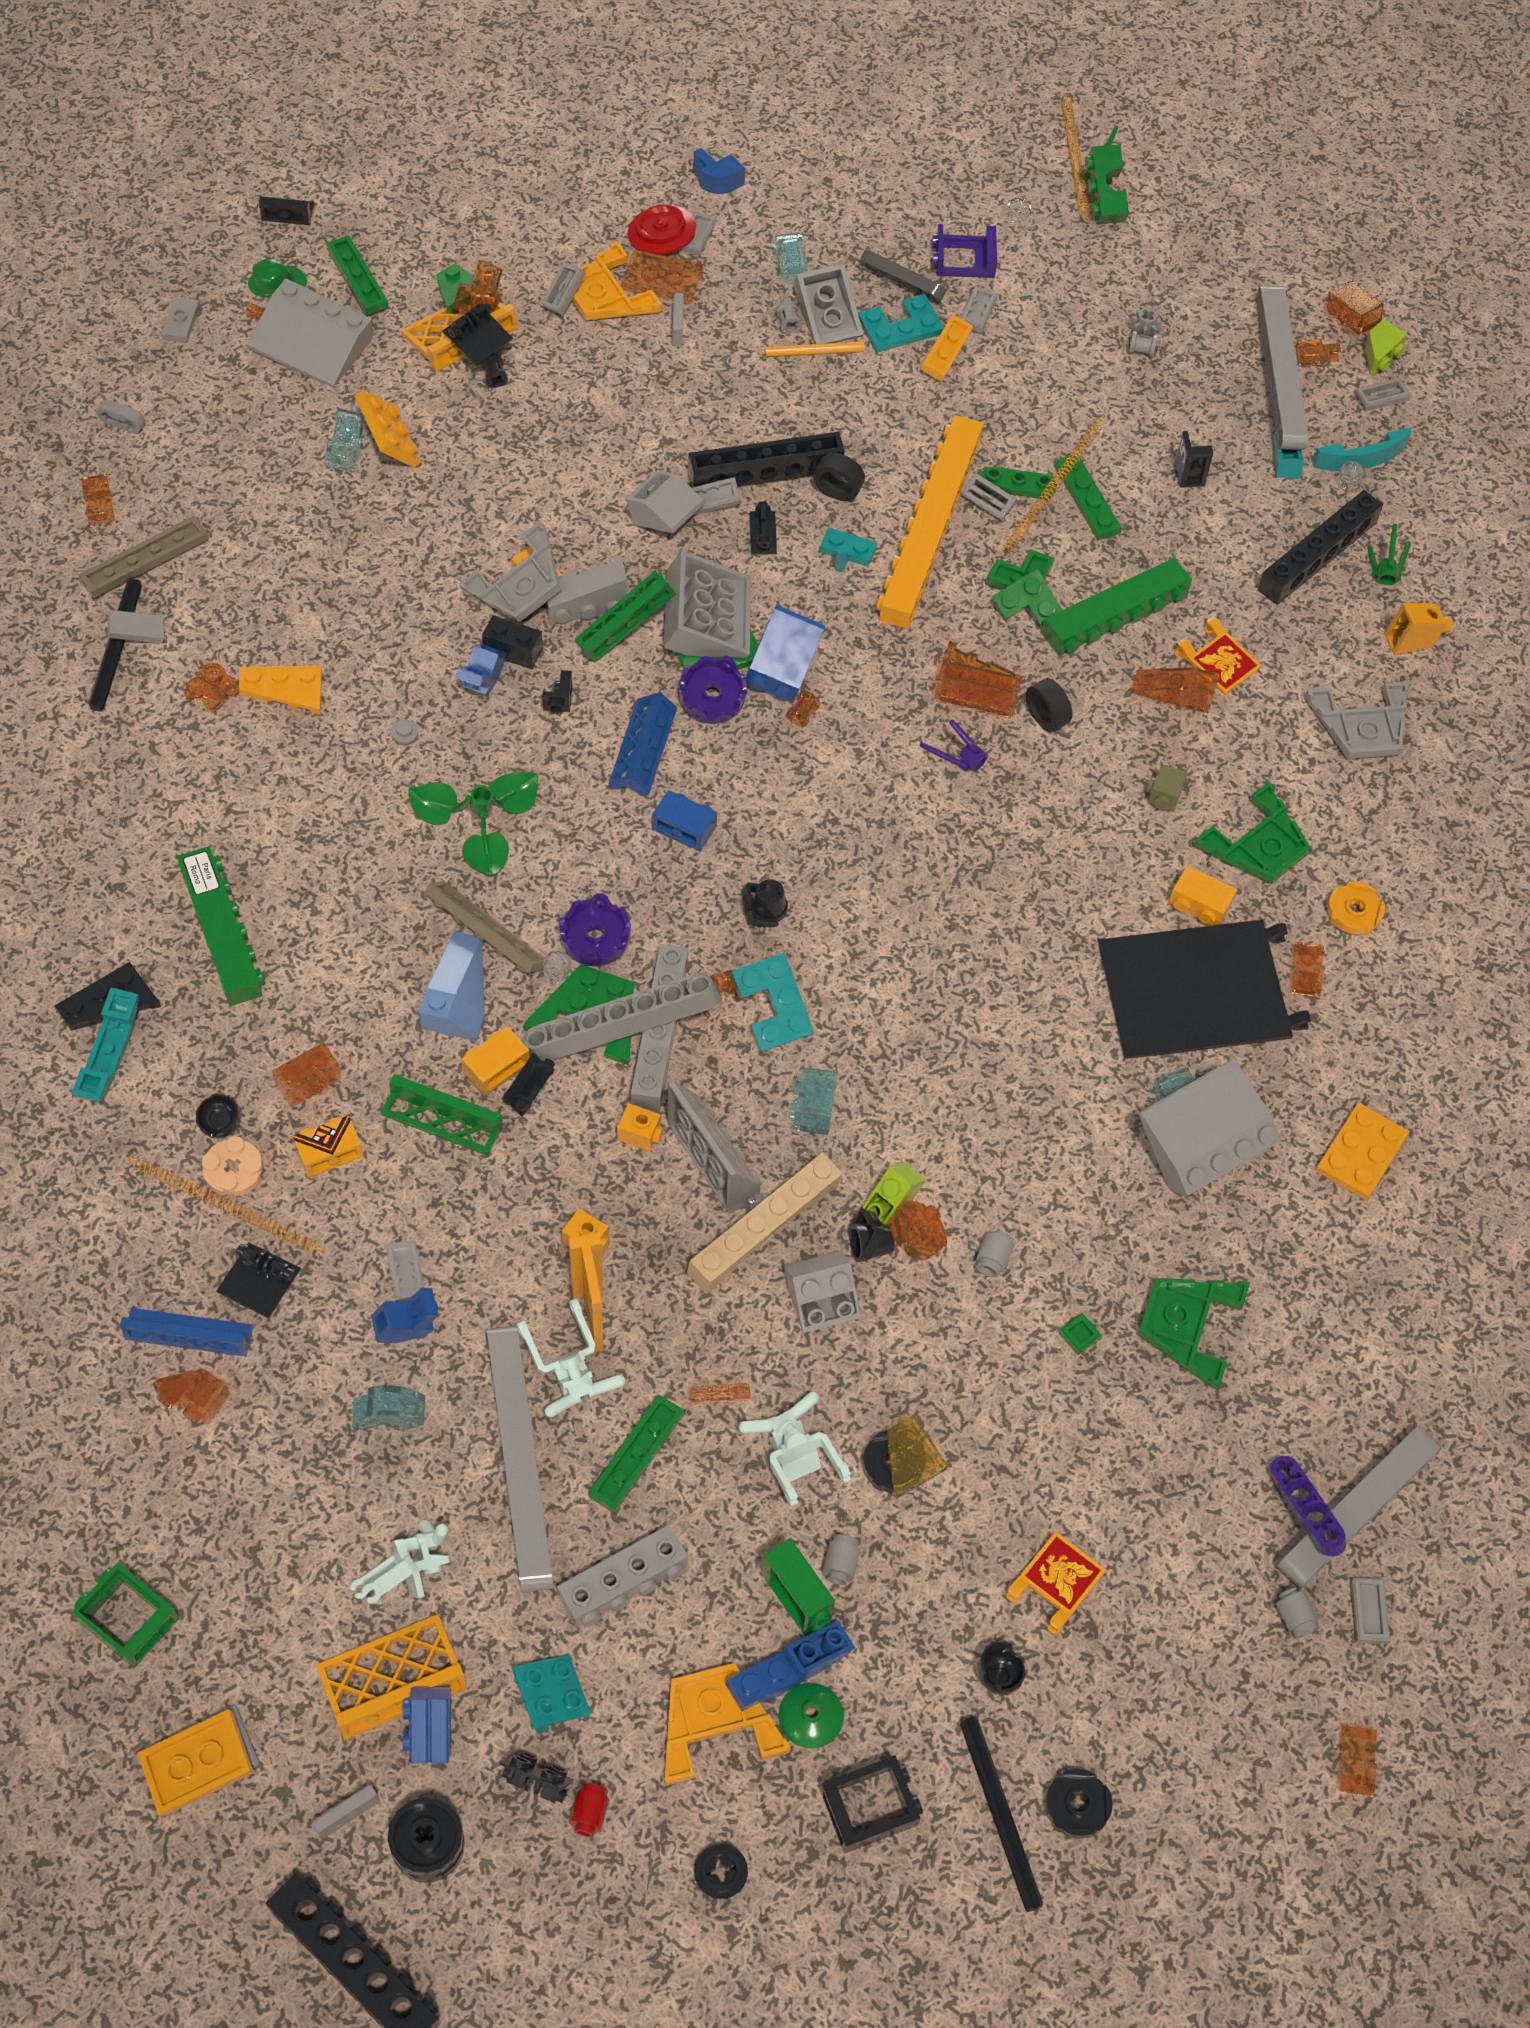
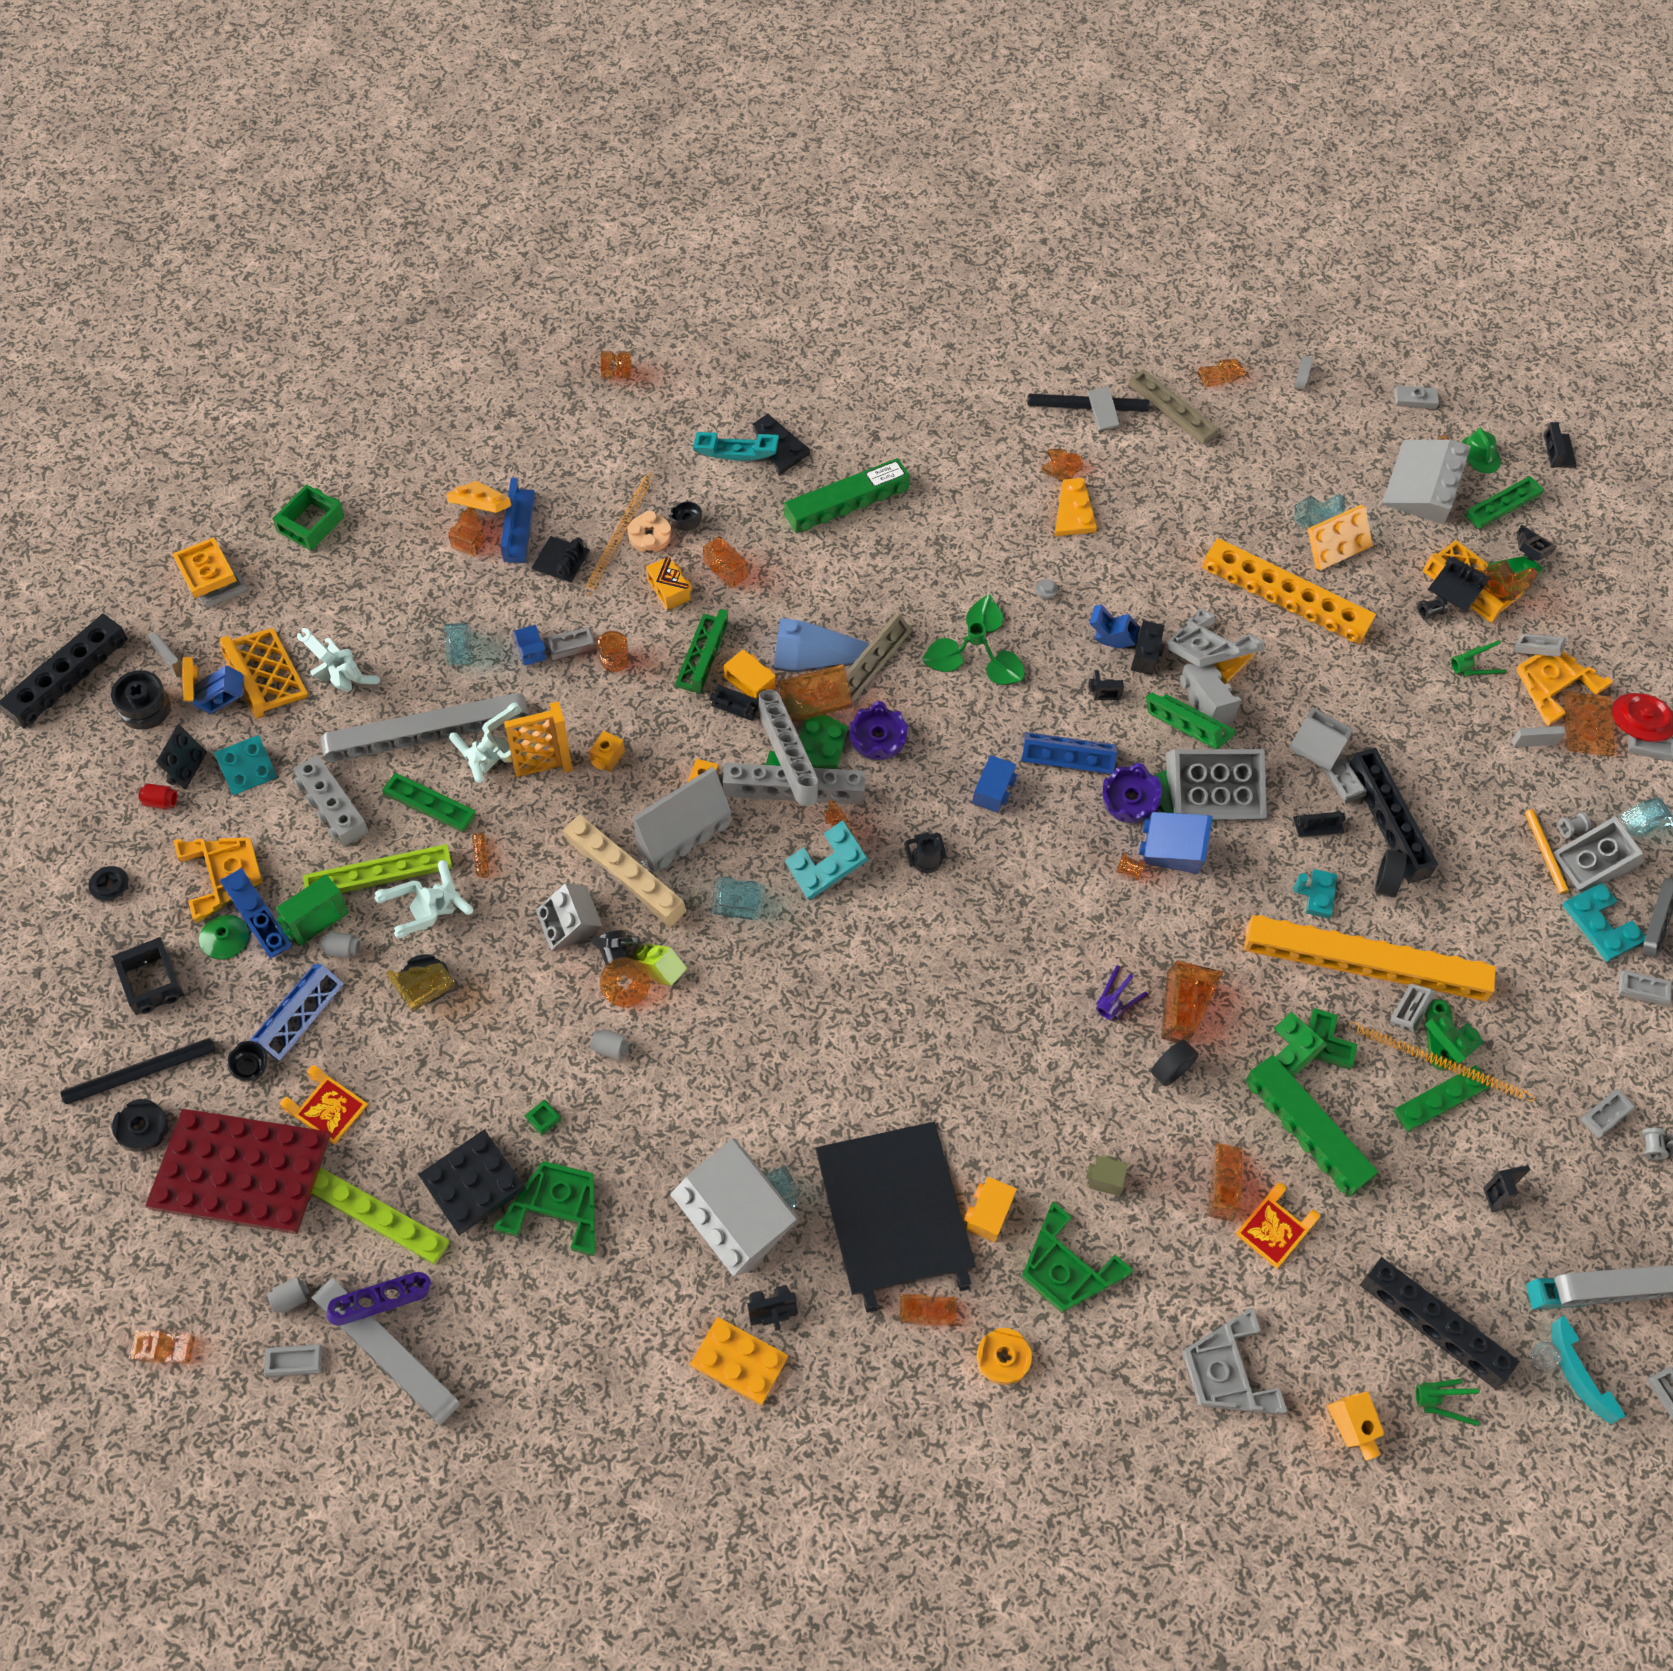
camera: 85 degrees right, 0 degrees up
(143, 1371) = (479, 496): none -> light orange wing
(411, 1765) = (189, 678): none -> light orange wing
(426, 261) = (1533, 545): none -> black wing
(433, 1216) = (613, 651): none -> clear orange wheel
(449, 497) = (1288, 591): none -> light orange brick
(535, 985) = (816, 693): none -> clear orange tile
(572, 360) = (1464, 662): none -> green plant
(736, 1518) = (384, 869): none -> lime plate
(926, 1618) = (290, 1004): none -> fence
(946, 347) = (1585, 961): light orange plate -> none
(1030, 465) = (1458, 1042): none -> green plate
(1109, 371) = (1608, 1113): none -> light grey plate
(1143, 1677) = (238, 1171): none -> dark red plate
(1163, 1409) = (472, 1182): none -> black plate
(1196, 1522) = (379, 1217): none -> lime plate
(1302, 1100) = (772, 1309): none -> black hips

